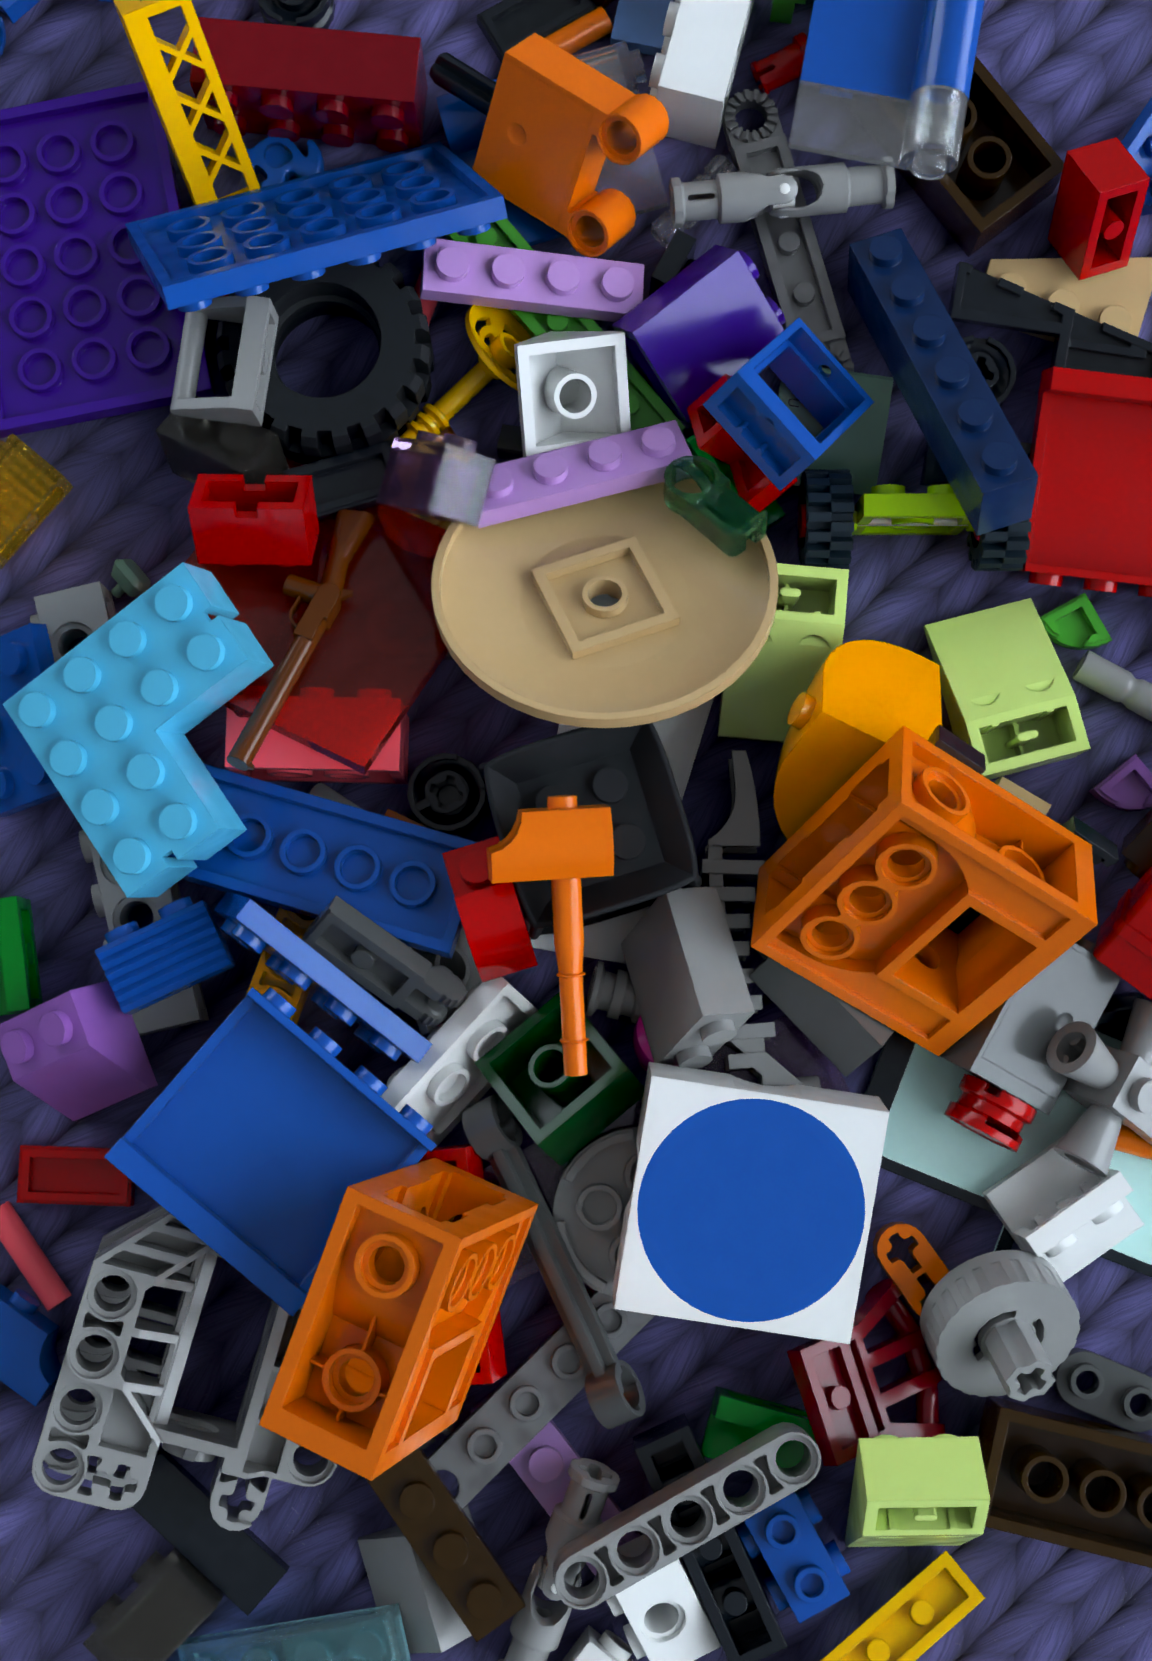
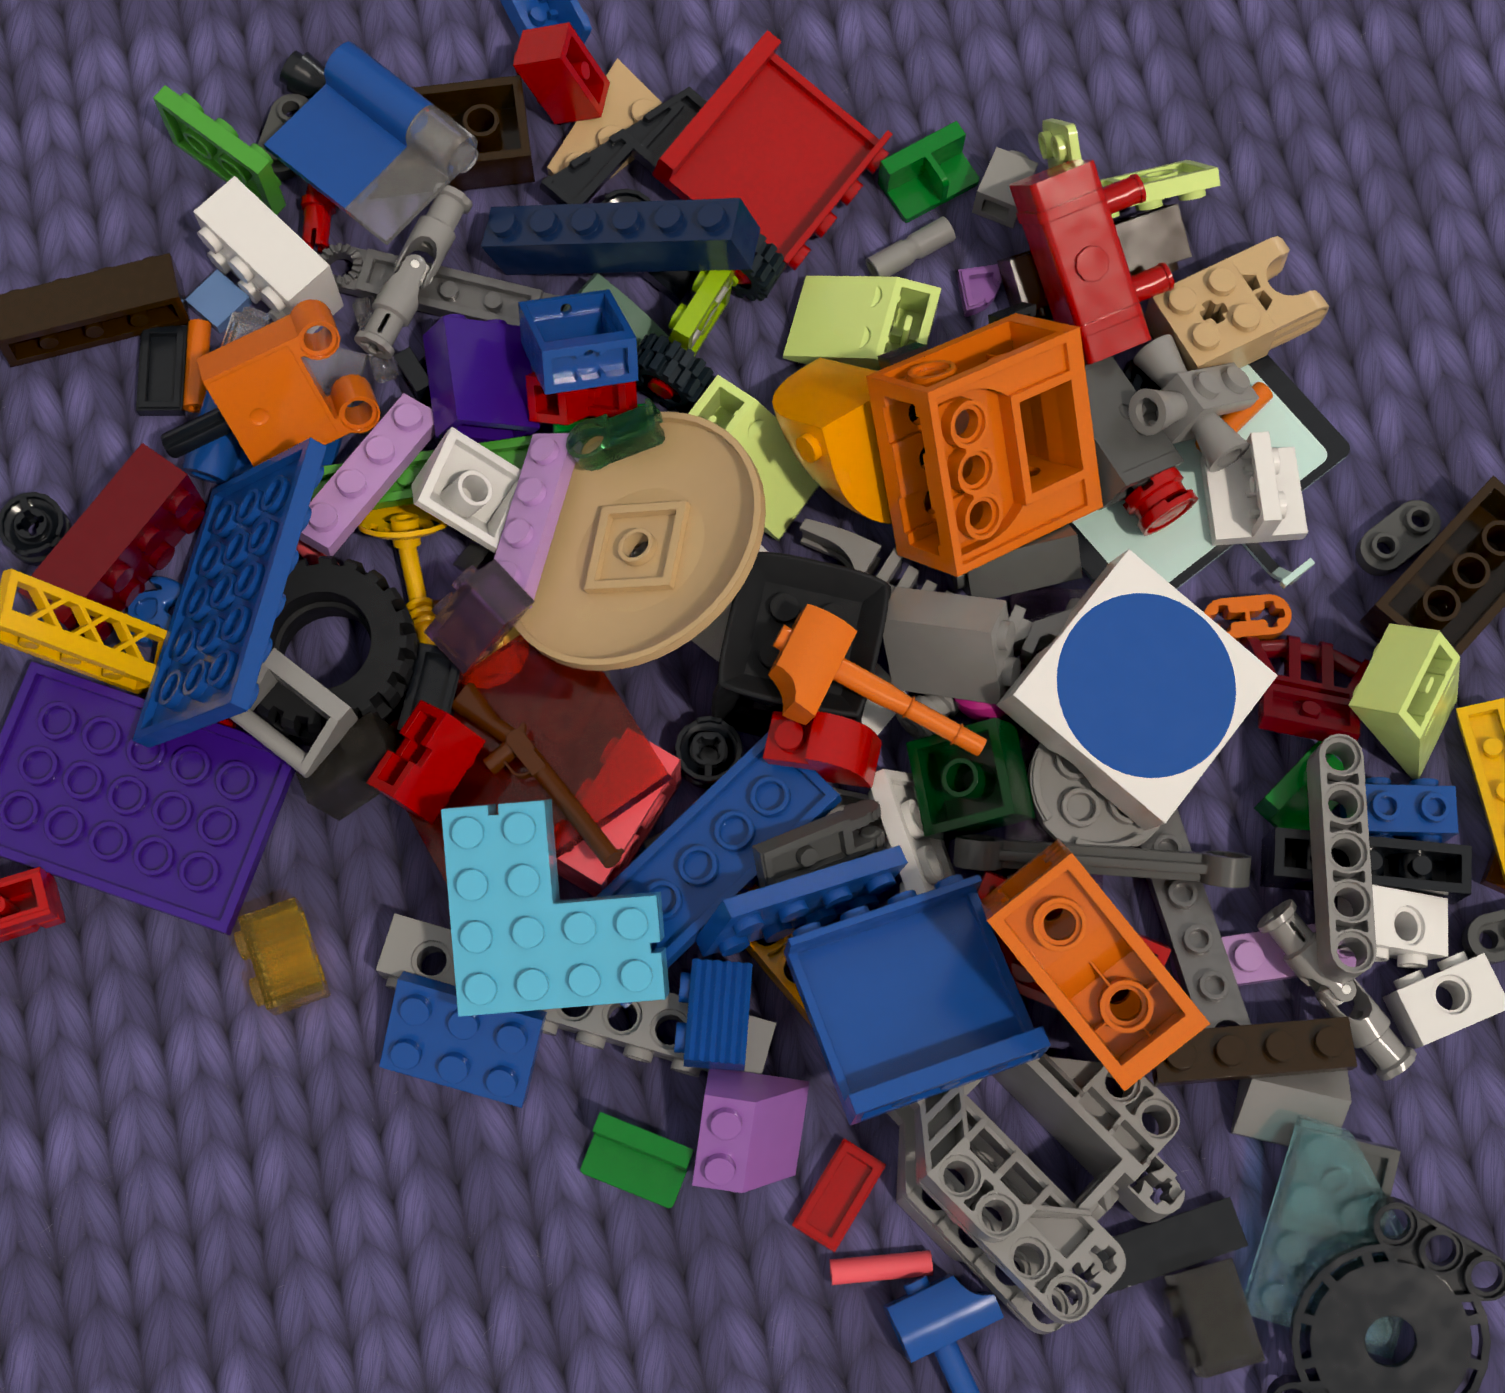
camera: 60 degrees left, 10 degrees down
(129, 578) = (400, 899): sand green rock -> none
(1023, 1321) = (1315, 557): light grey piece -> none
(1076, 625) = (843, 256): bright green tile -> none

